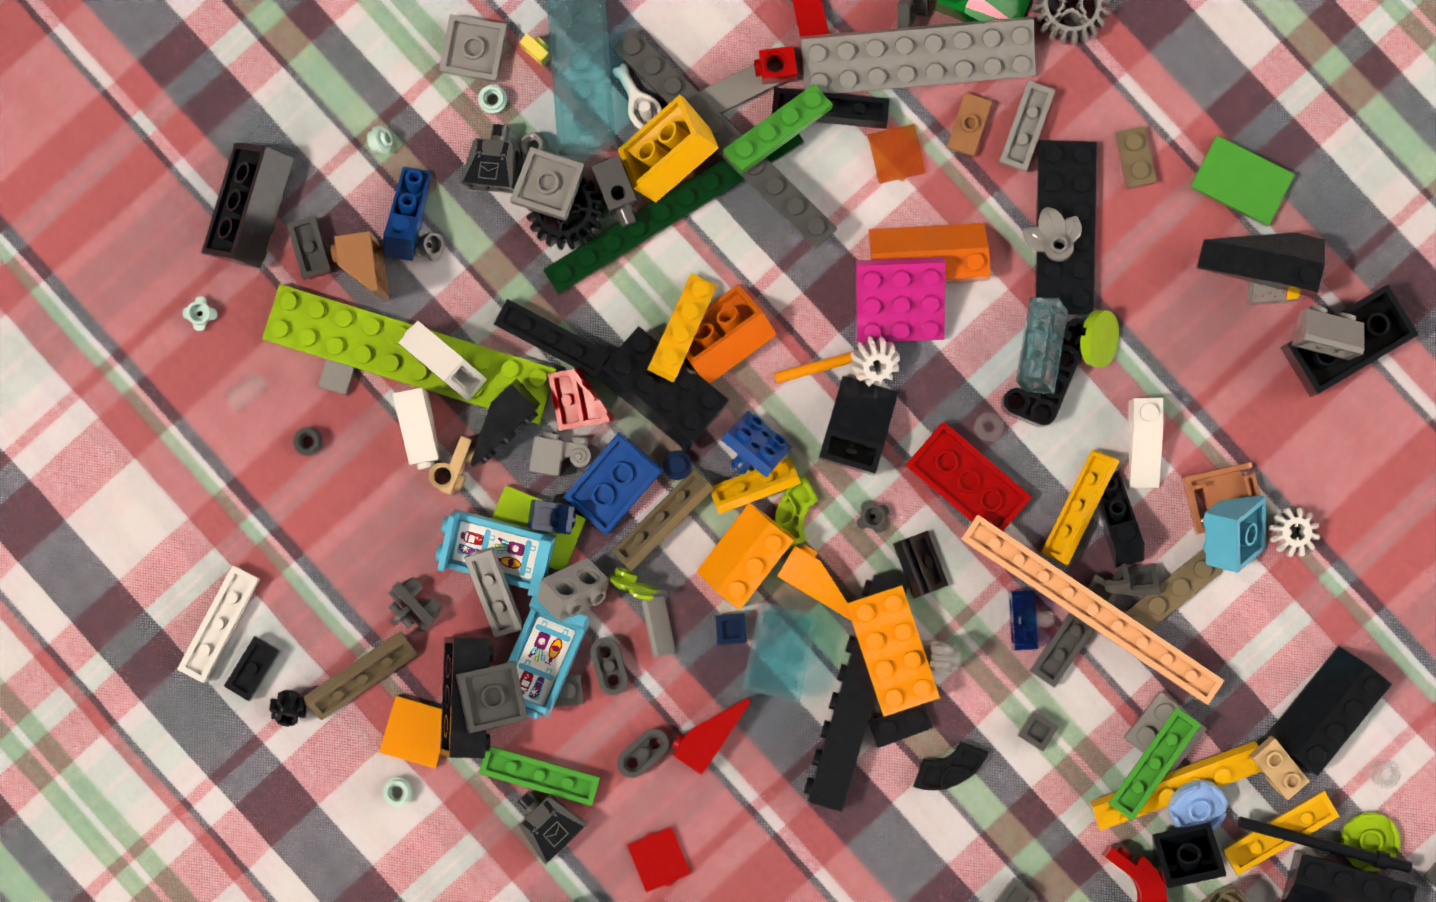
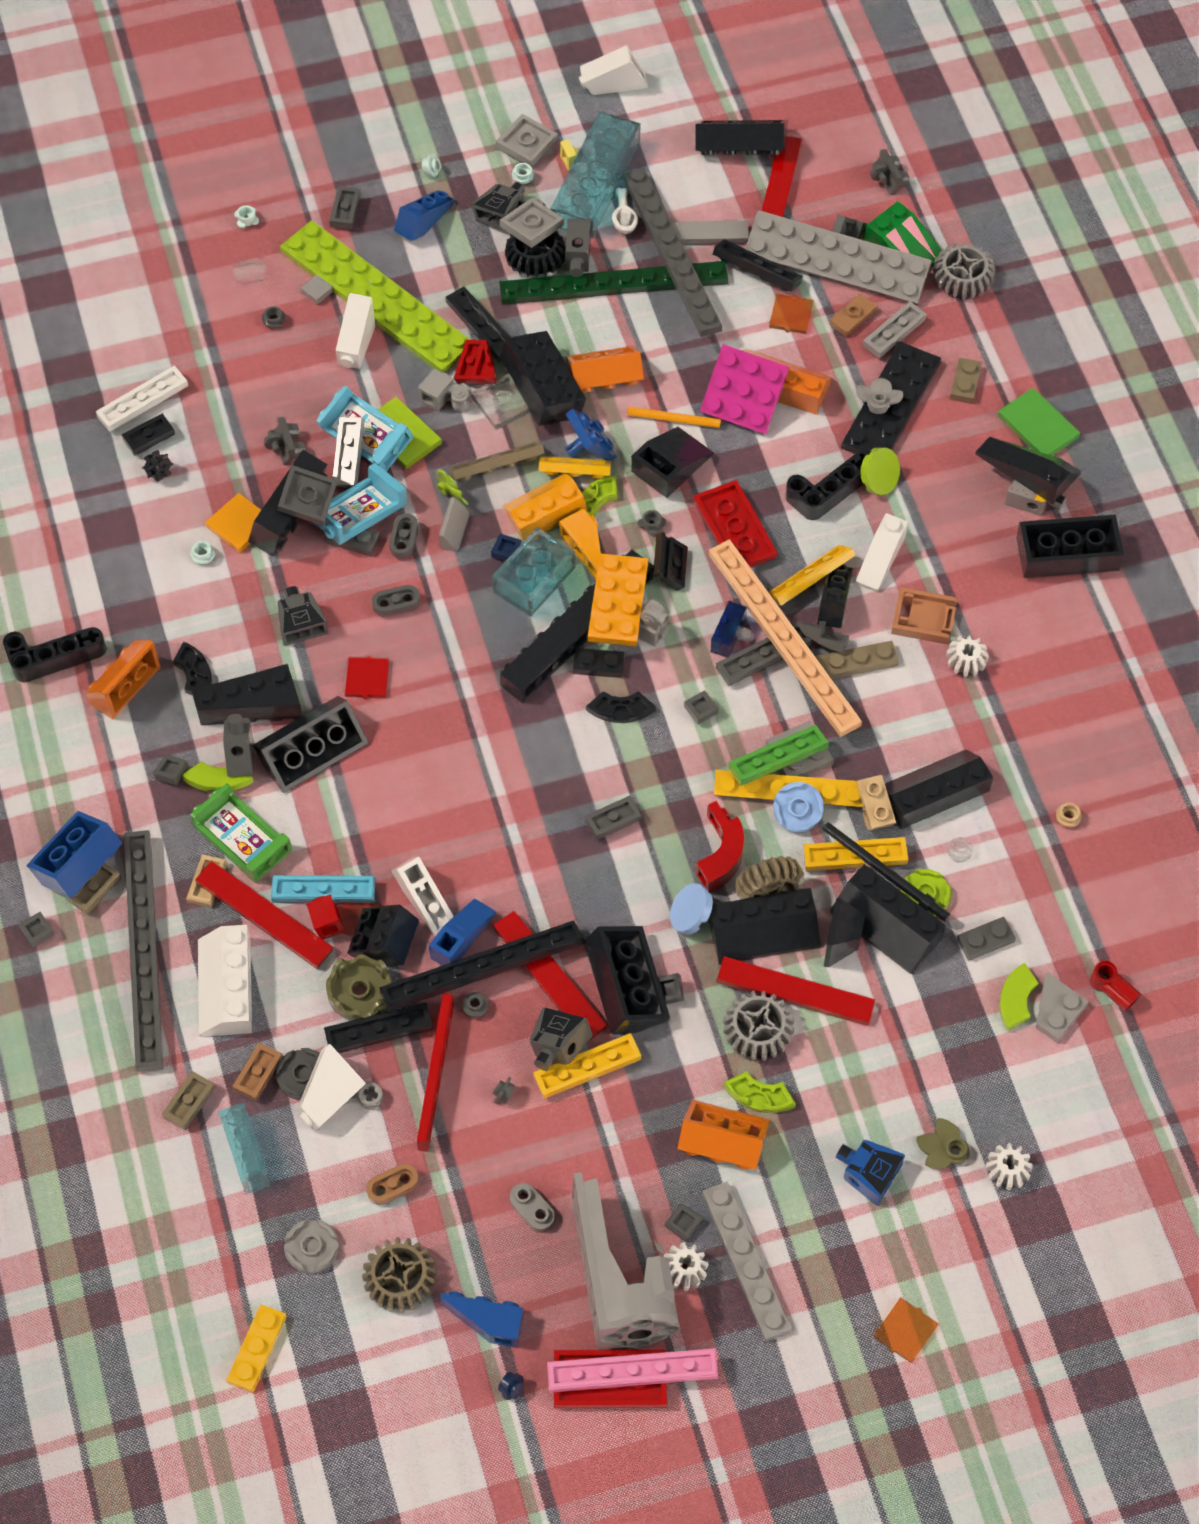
camera: 20 degrees right, 25 degrees down
(248, 205) = (319, 167): black slope -> none
(360, 675) = (221, 468): dark tan plate -> none
(363, 260) = (377, 216): medium nougat slope -> none
(435, 241) = (434, 237): dark grey plate -> none
(442, 360) = (397, 297): white slope -> none
(462, 456) = (361, 373): tan plate -> none
(505, 413) = (419, 348): black slope -> none
(539, 775) = (309, 580): bright green plate -> none
(551, 517) = (417, 421): dark blue bracket -> none
(573, 589) = (406, 468): light grey brick -> none
(613, 483) = (473, 423): blue tile -> none
(667, 149) = (627, 239): yellow slope -> none
(677, 465) = (526, 433): dark blue plate -> none
(682, 327) = (577, 344): yellow plate -> none
(705, 739) = (452, 607): red slope -> none
(777, 129) = (712, 254): bright green plate -> none
(785, 56) = (732, 222): red brick -> none
(872, 371) = (712, 416): white gear -> none
(995, 420) = (769, 494): clear plate -> none
(1042, 345) = (833, 450): clear light blue brick -> none
(1187, 855) = (772, 828): black slope -> none
(1235, 532) = (921, 630): medium azure slope -> none
(1329, 334) = (1051, 519): light grey slope -> none

